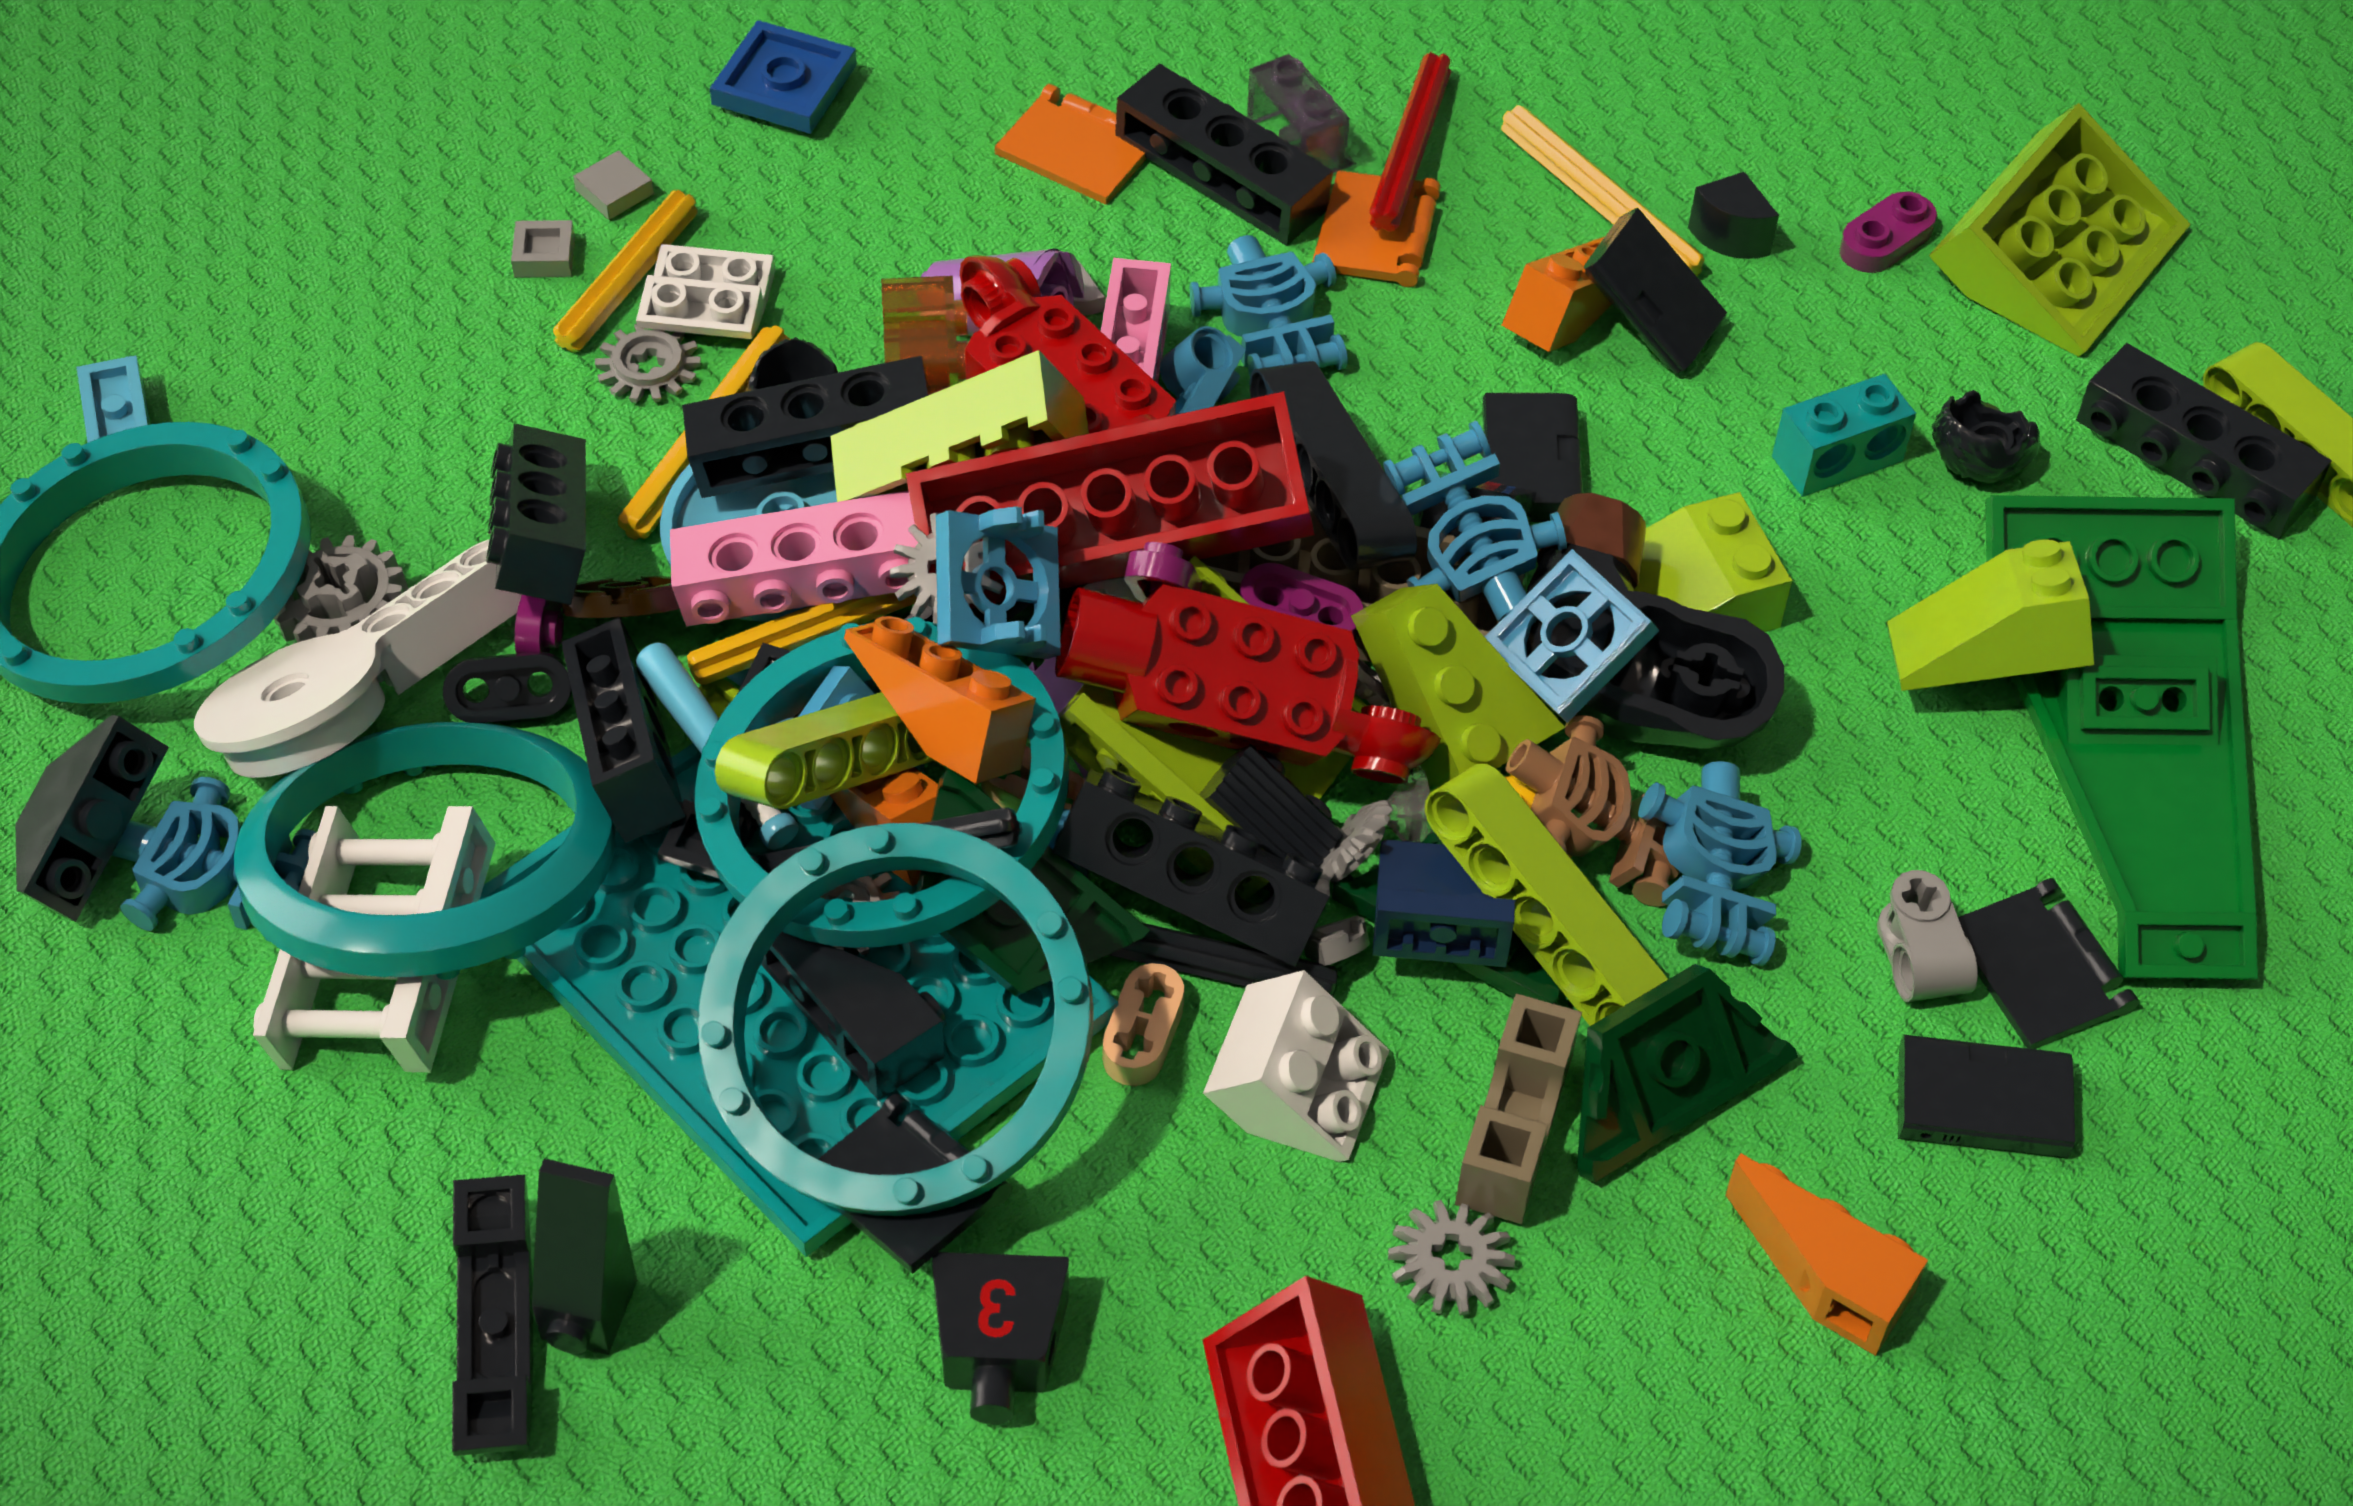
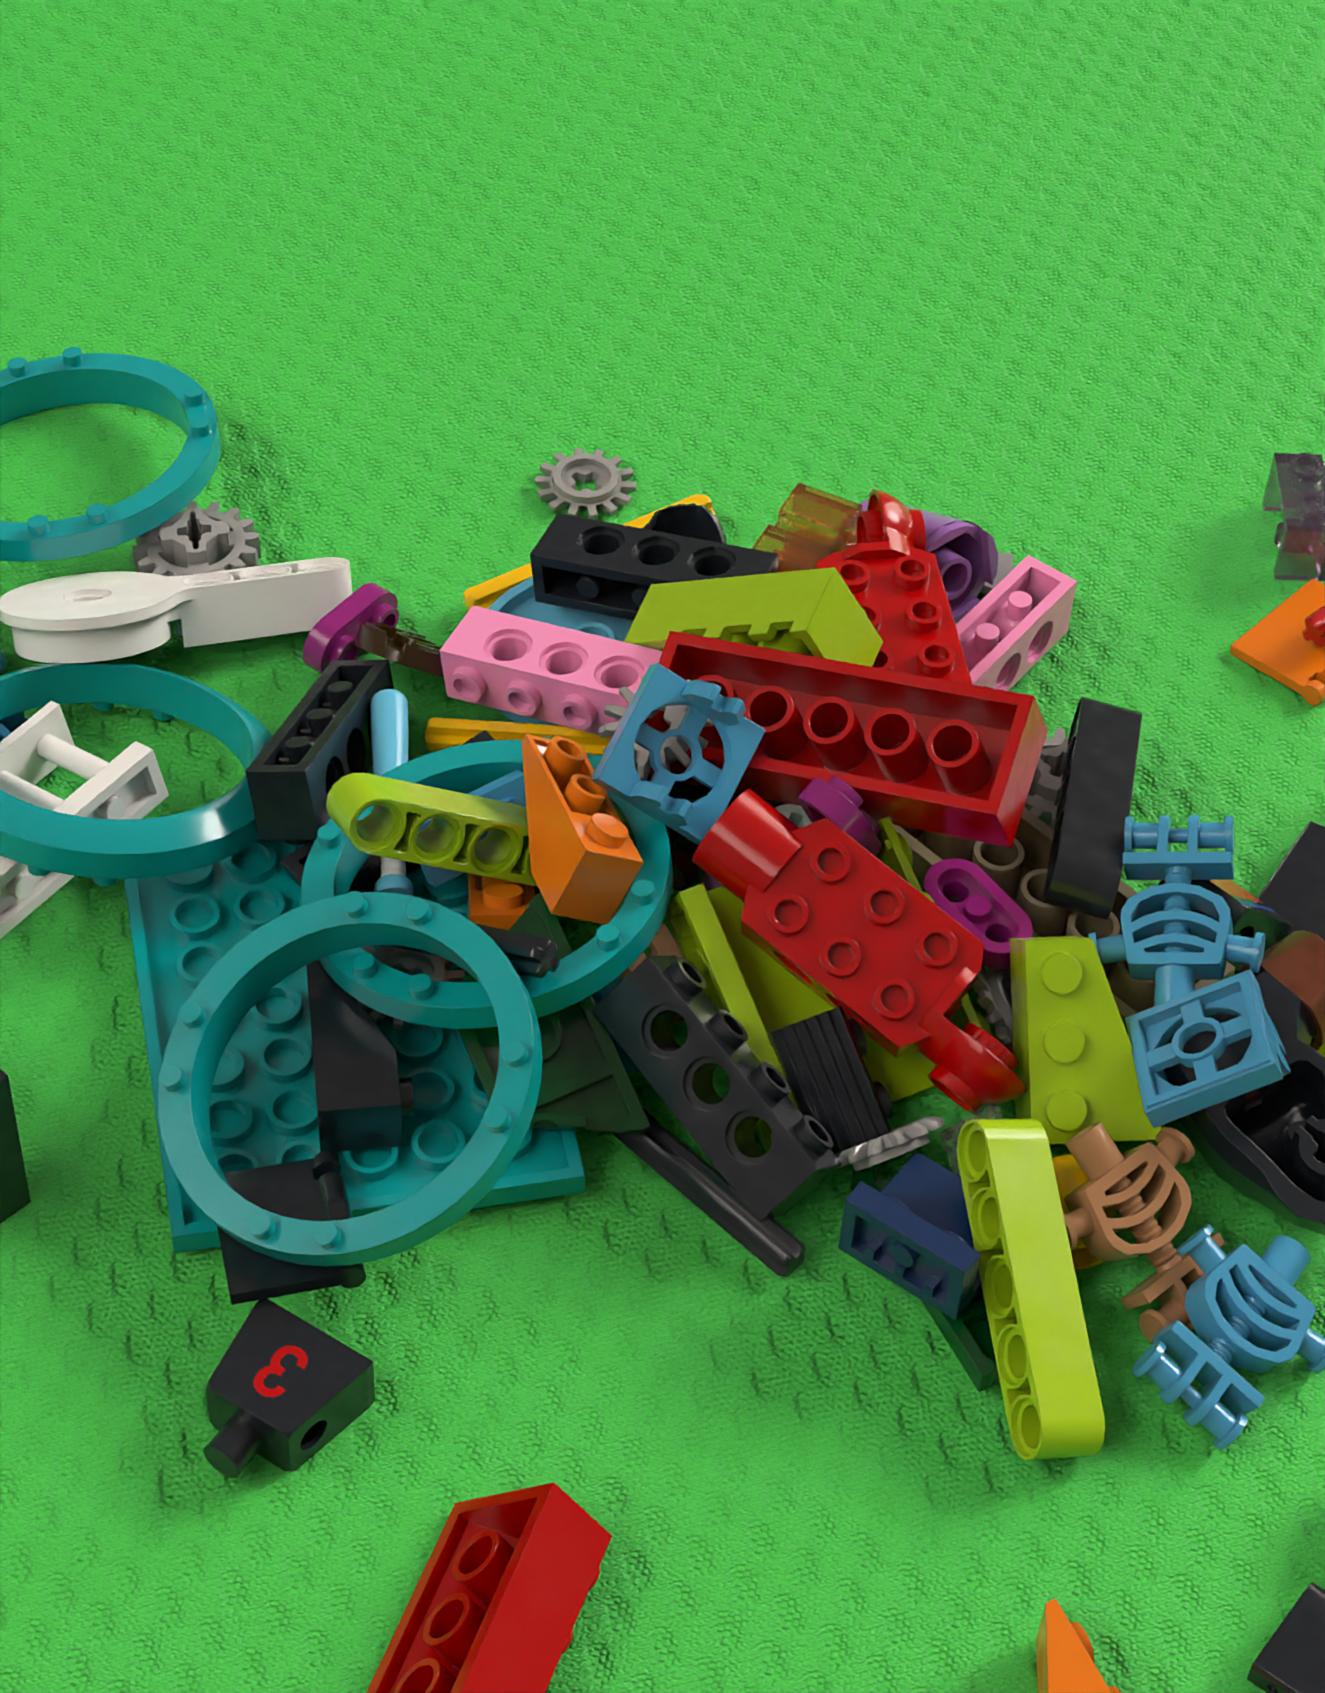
camera: 30 degrees right, 5 degrees down
(112, 396) = (144, 329): medium azure plate -> none
(509, 687) = (278, 678): black plate -> none
(538, 513) = (383, 551): black brick -> none
(543, 248) = (565, 360): light grey tile -> none
(613, 185) = (660, 334): light grey tile -> none
(624, 271) = (619, 404): yellow axle -> none
(706, 292) = (673, 447): white slope -> none
(783, 76) = (864, 305): blue plate -> none
(1072, 145) = (1088, 462): orange piece -> none
(1130, 1020) = (606, 1215): light nougat beam -> none
(1201, 369) = (1073, 677): dark azure plate -> none
(1223, 154) = (1209, 519): black brick -> none
(1273, 306) = (1165, 665): dark azure piece -> none
(1297, 1067) = (705, 1314): white slope -> none
(1337, 940) = (817, 1222): light grey tile -> none
(1430, 1271) = (736, 1578): light grey gear -> none
(1518, 1109) = (839, 1482): dark tan arch -> none
(1667, 1066) = (1049, 1485): dark green wing -> none

